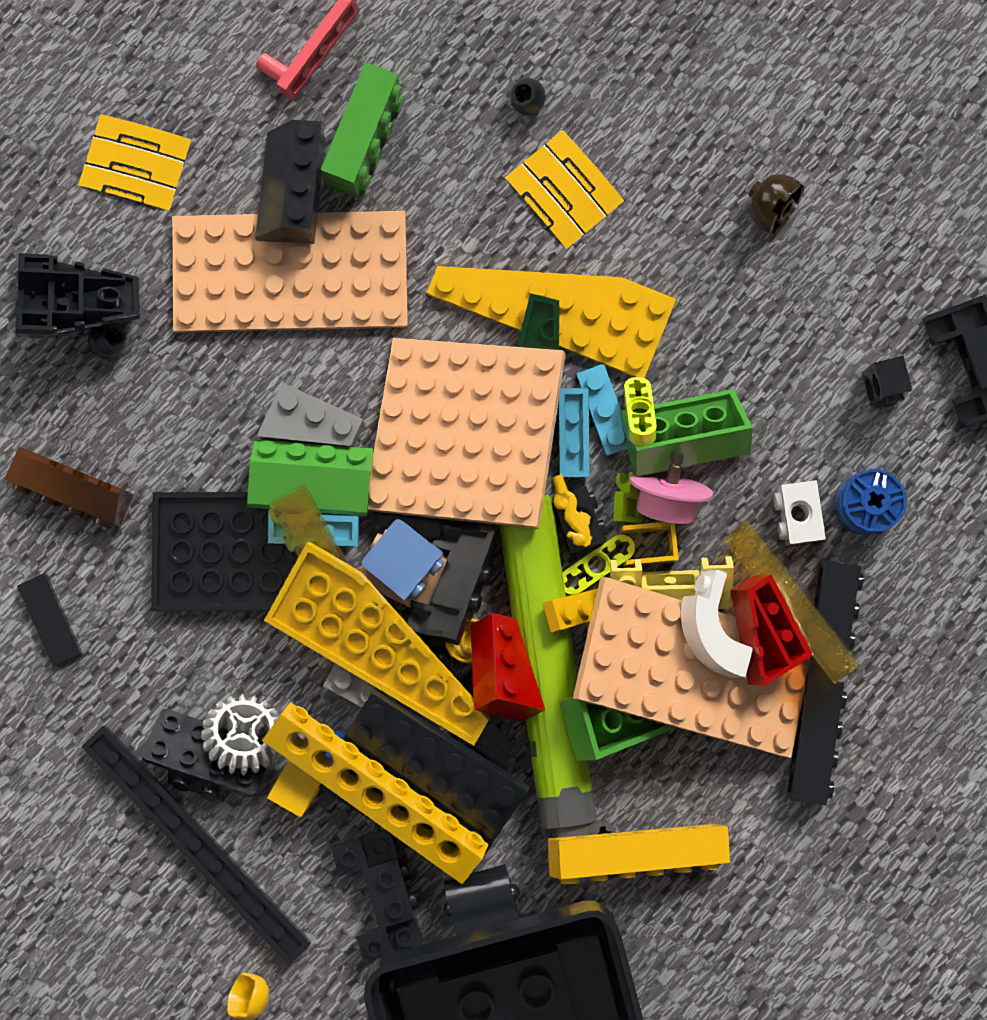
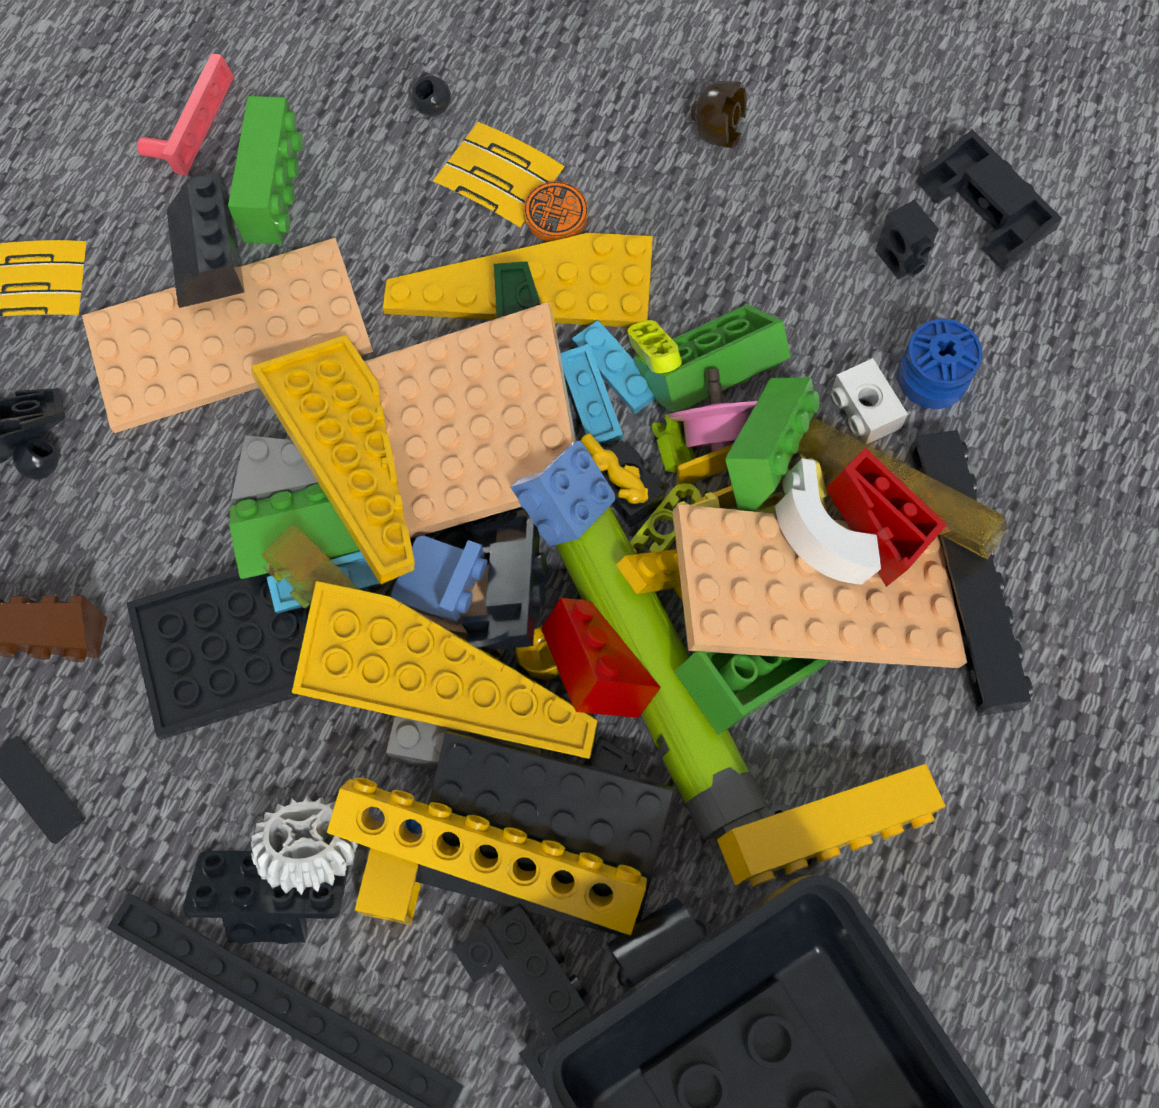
camera: 15 degrees left, 15 degrees down
(358, 398) = (339, 428): none -> yellow wing
(524, 533) = (565, 495): none -> medium blue bracket
(601, 246) = (555, 211): none -> tile
(702, 535) = (770, 439): none -> bright green slope

